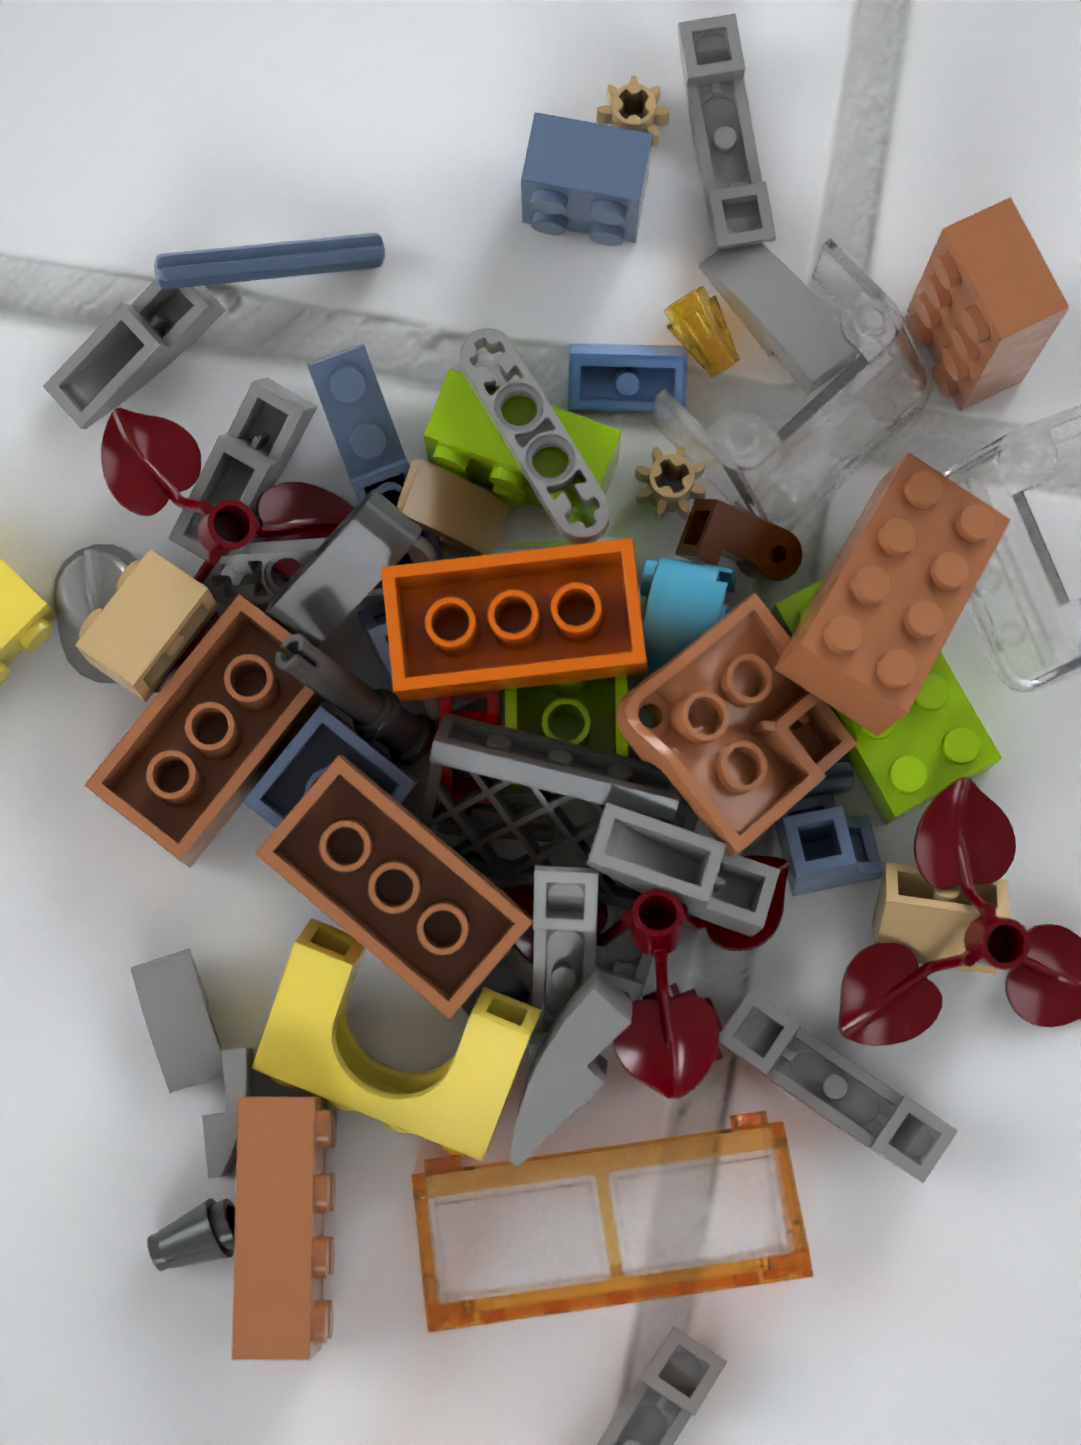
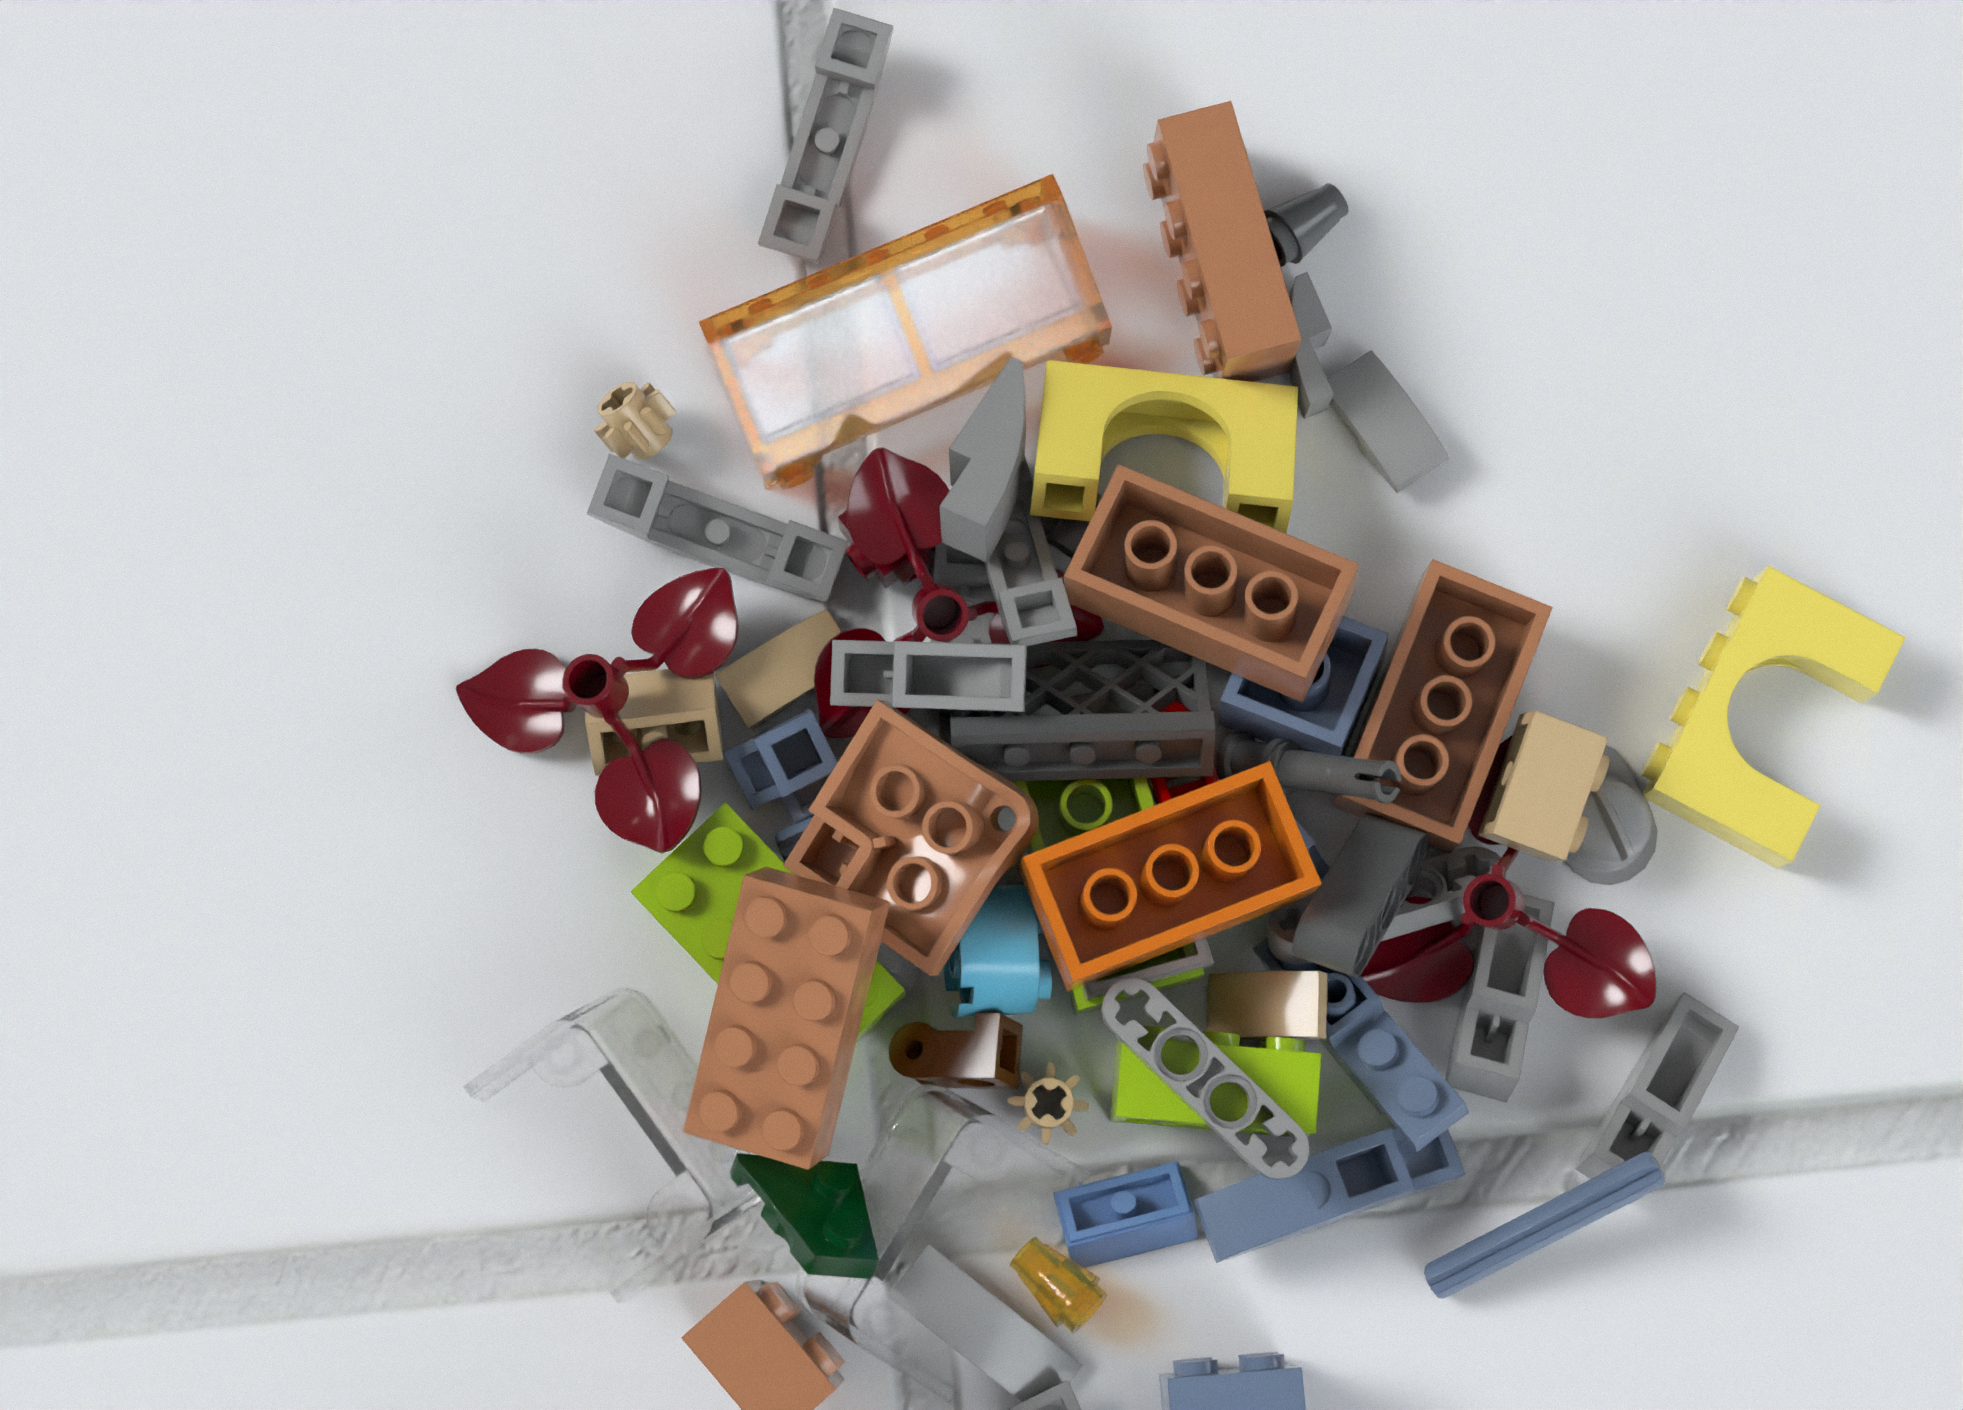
camera: 160 degrees right, 0 degrees up
(431, 339) = (1326, 1190): none -> sand blue slope
(809, 937) = (778, 670): none -> tan slope
(889, 1214) = (635, 421): none -> tan gear
(900, 417) = (815, 1211): none -> dark green wing

